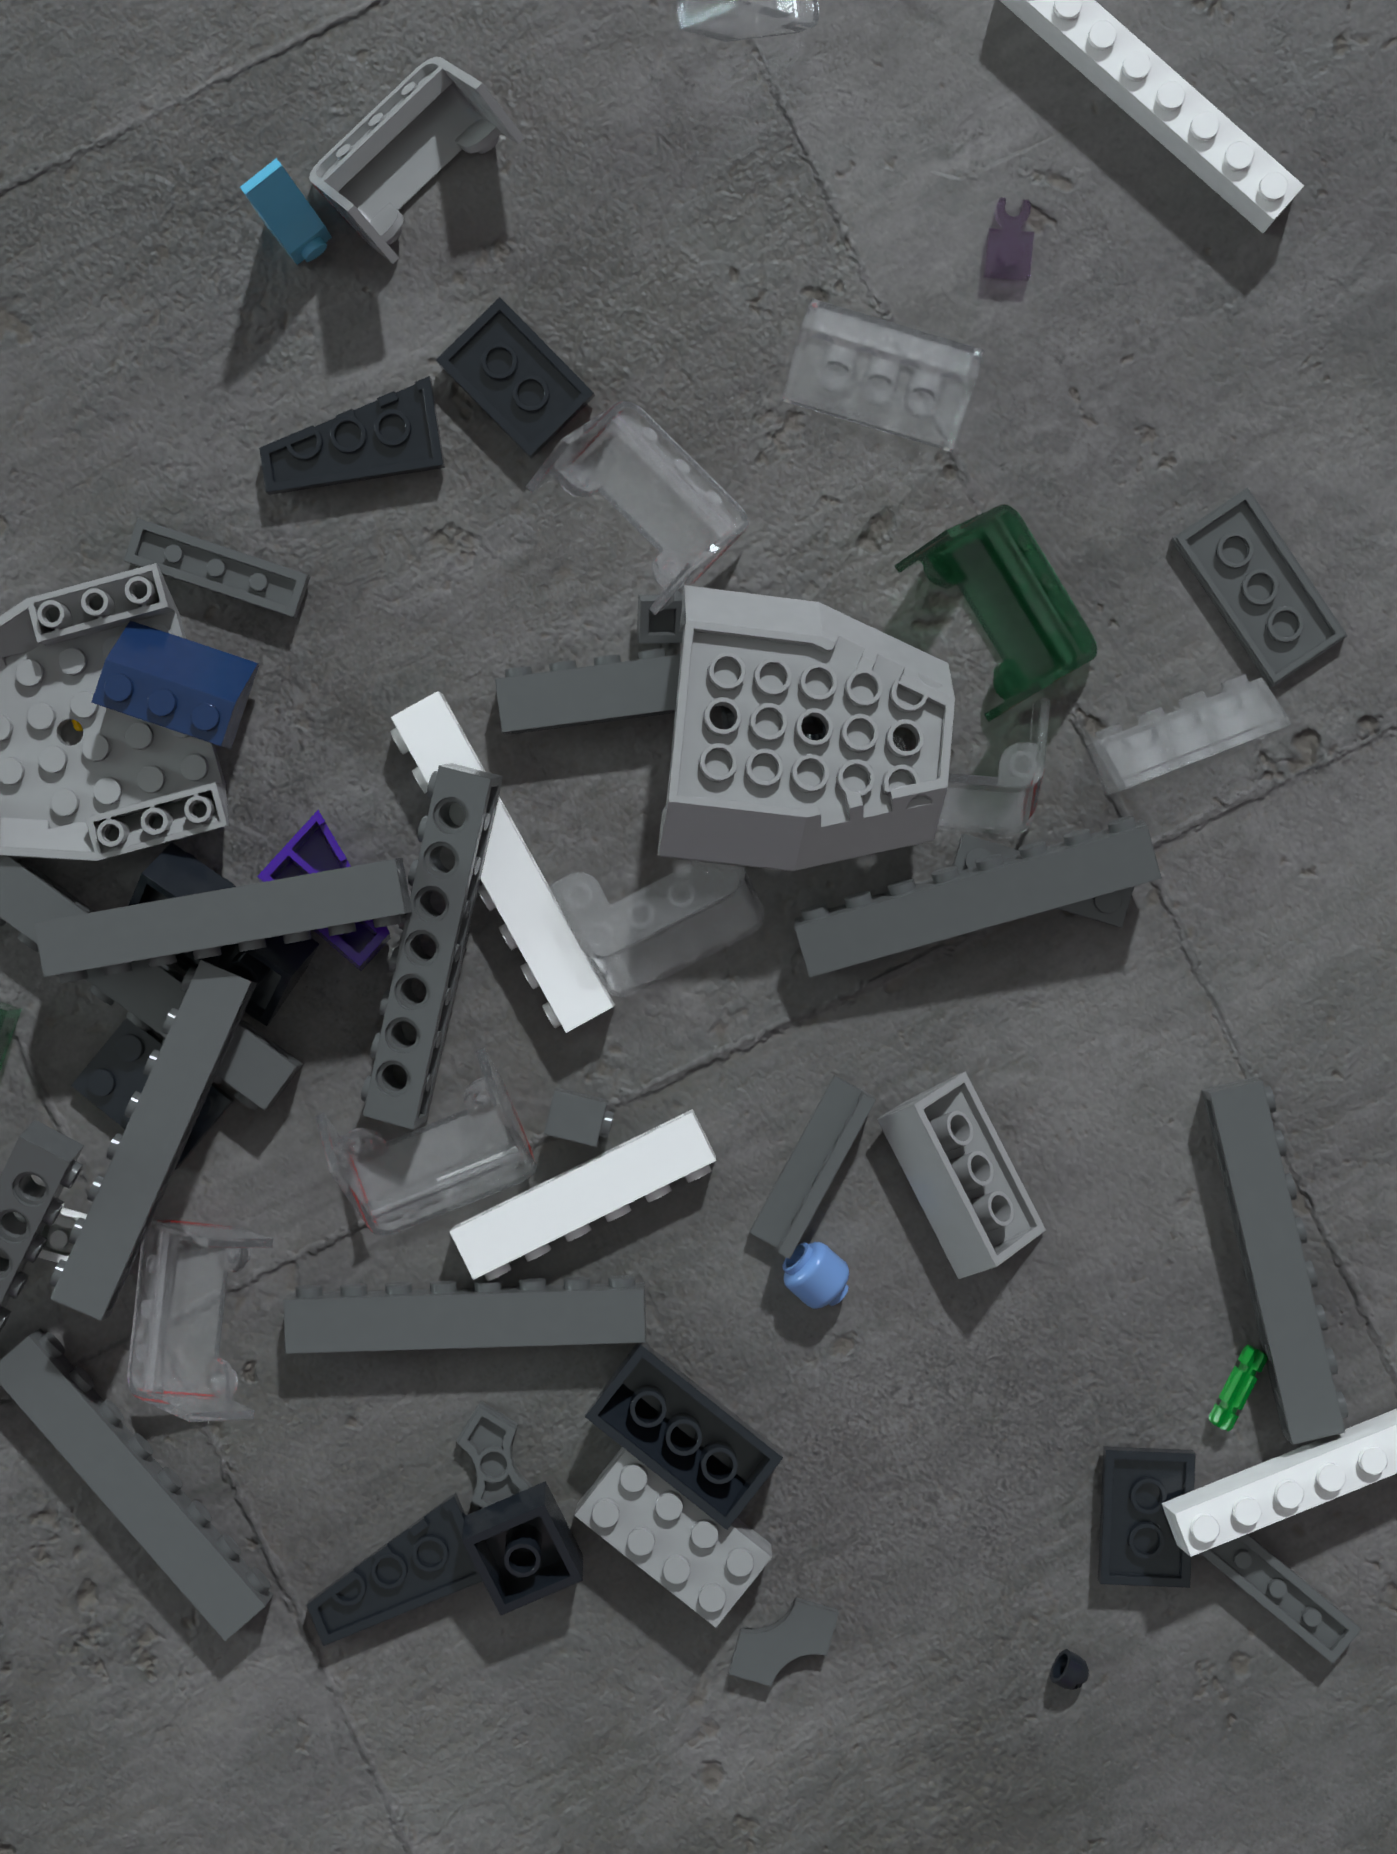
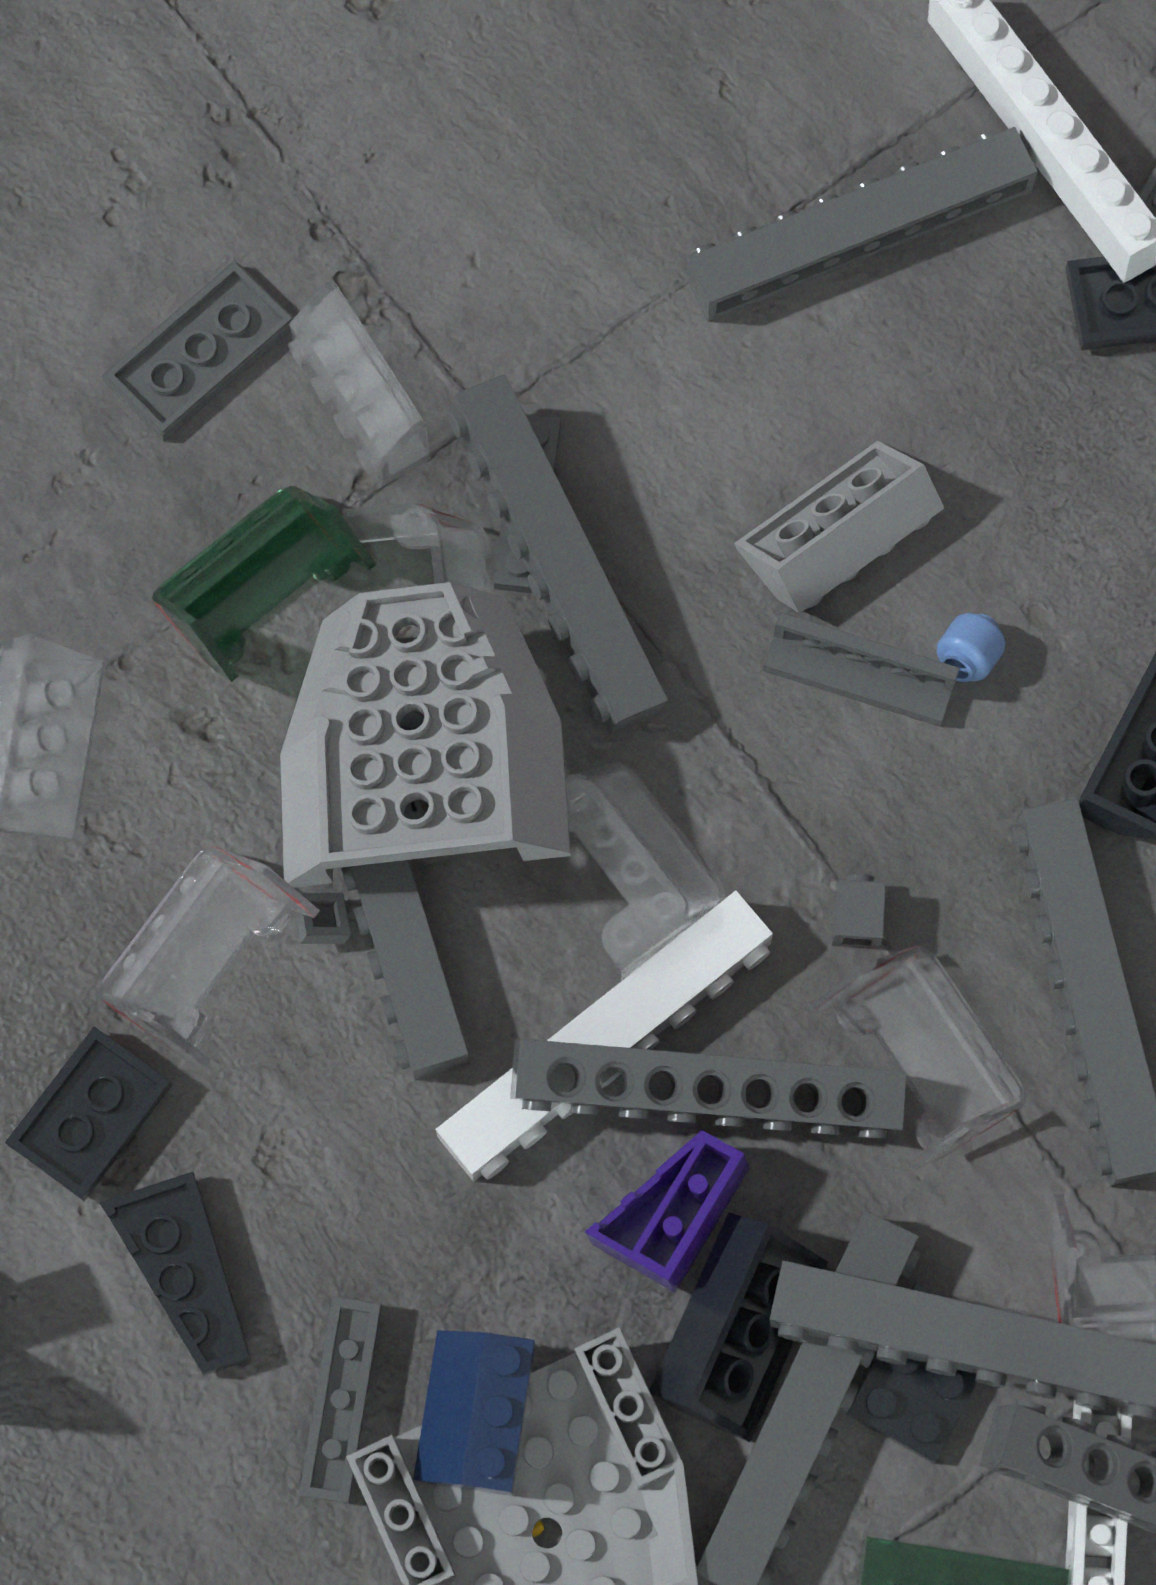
camera: 100 degrees left, 15 degrees down
(223, 918) = (720, 1301): dark grey brick -> none
(583, 1195) = (939, 893): white brick -> none
(1238, 1388) = (994, 236): green axle -> none

